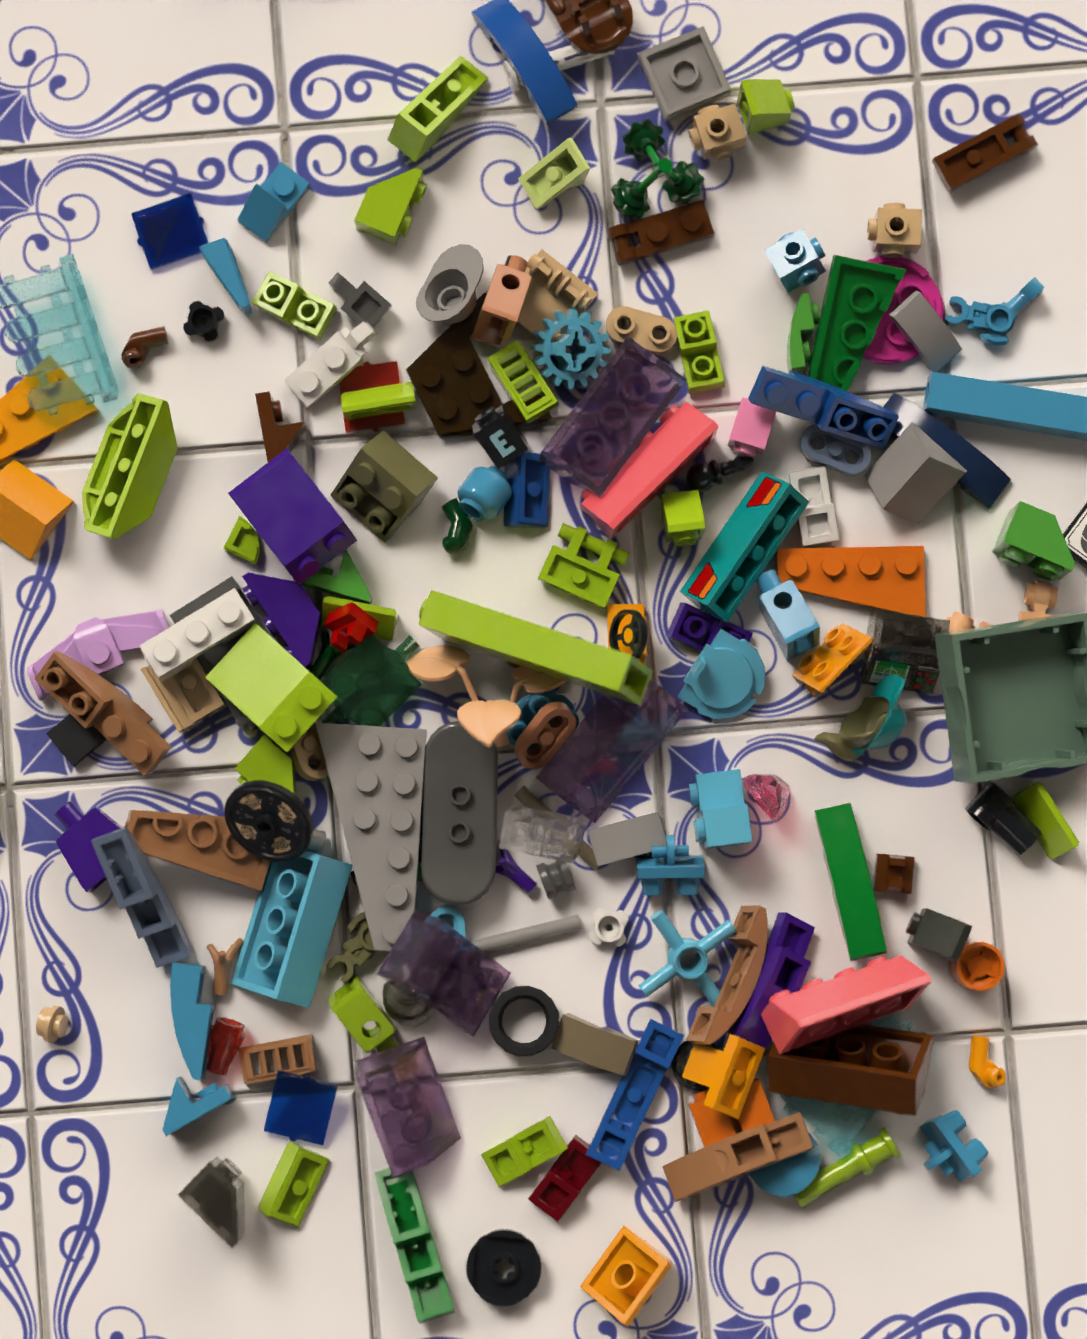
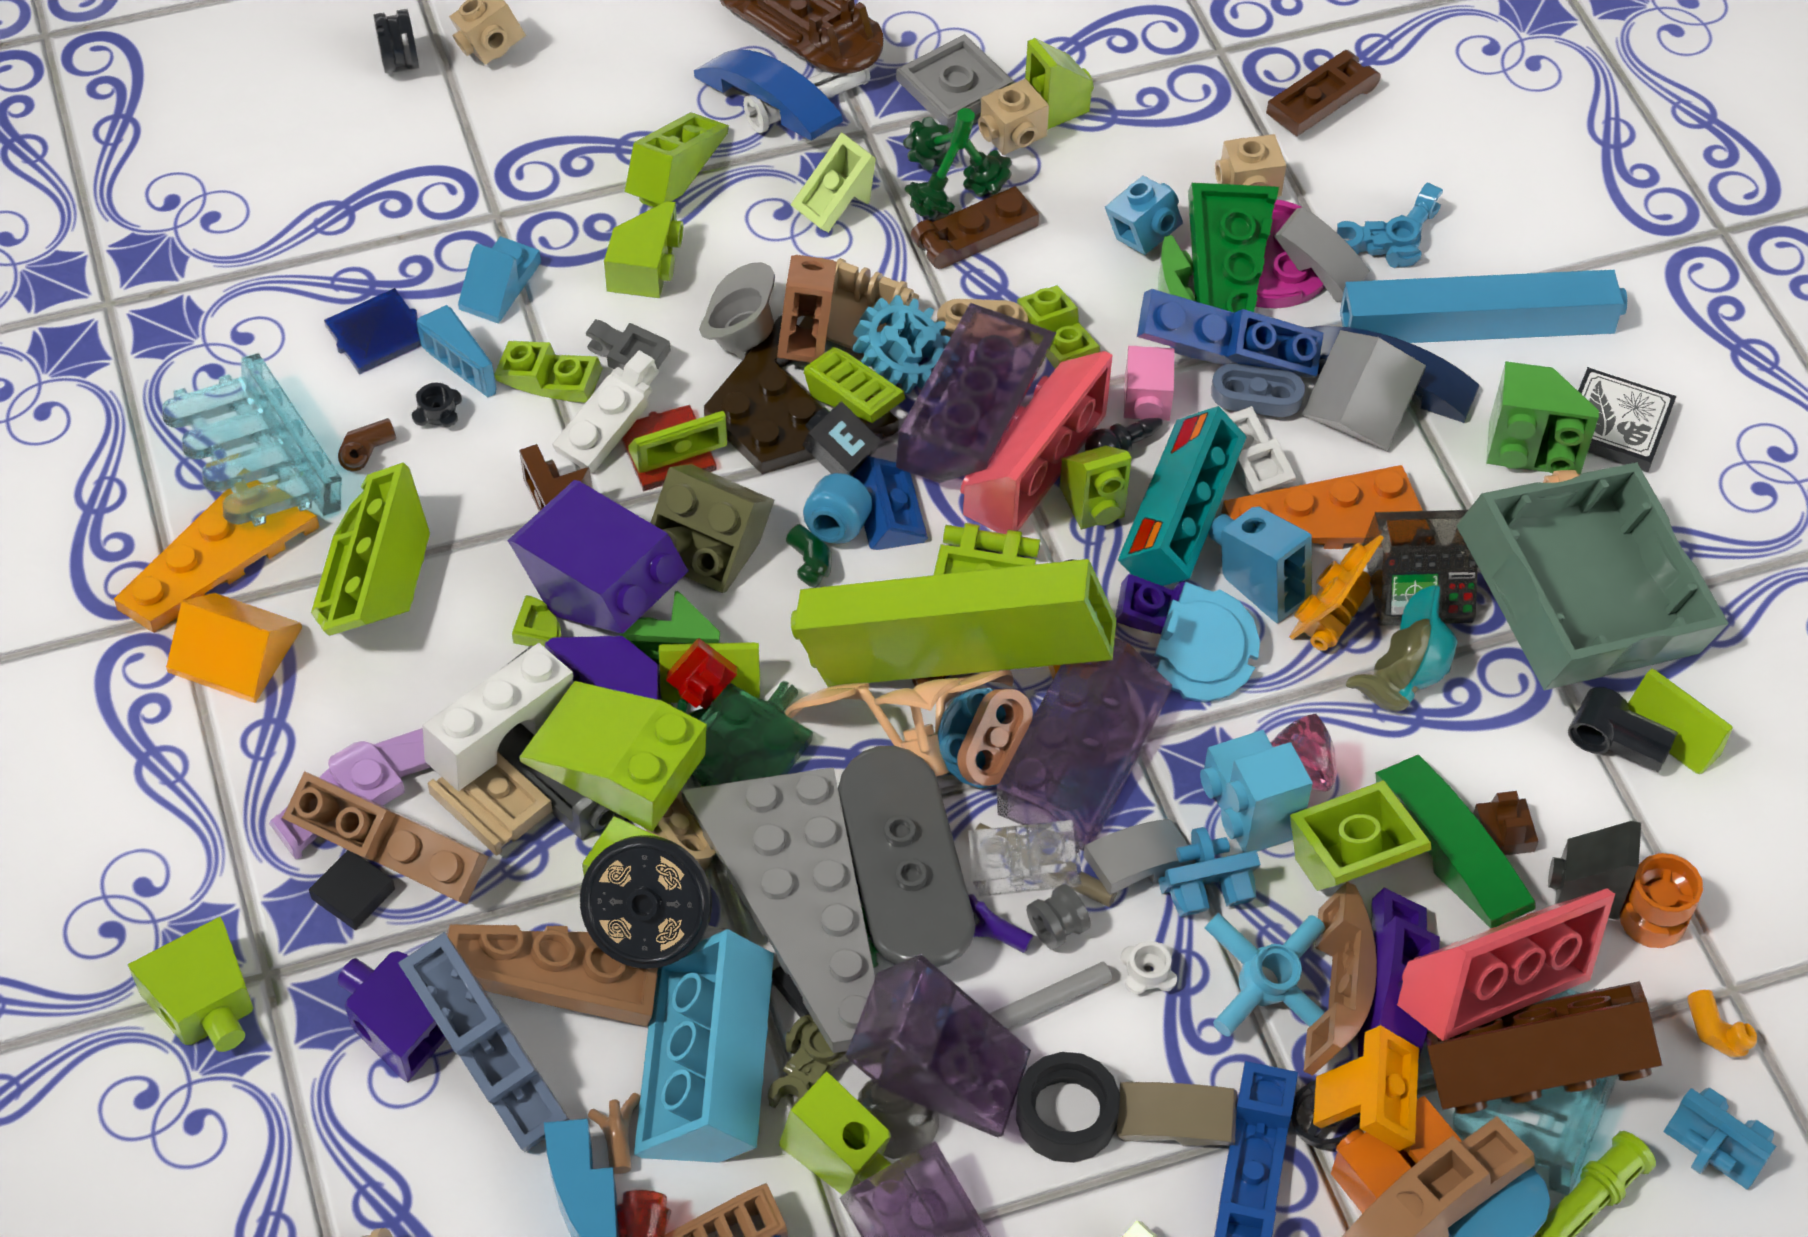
camera: 15 degrees left, 30 degrees down
(777, 877) = (1354, 836): none -> lime slope

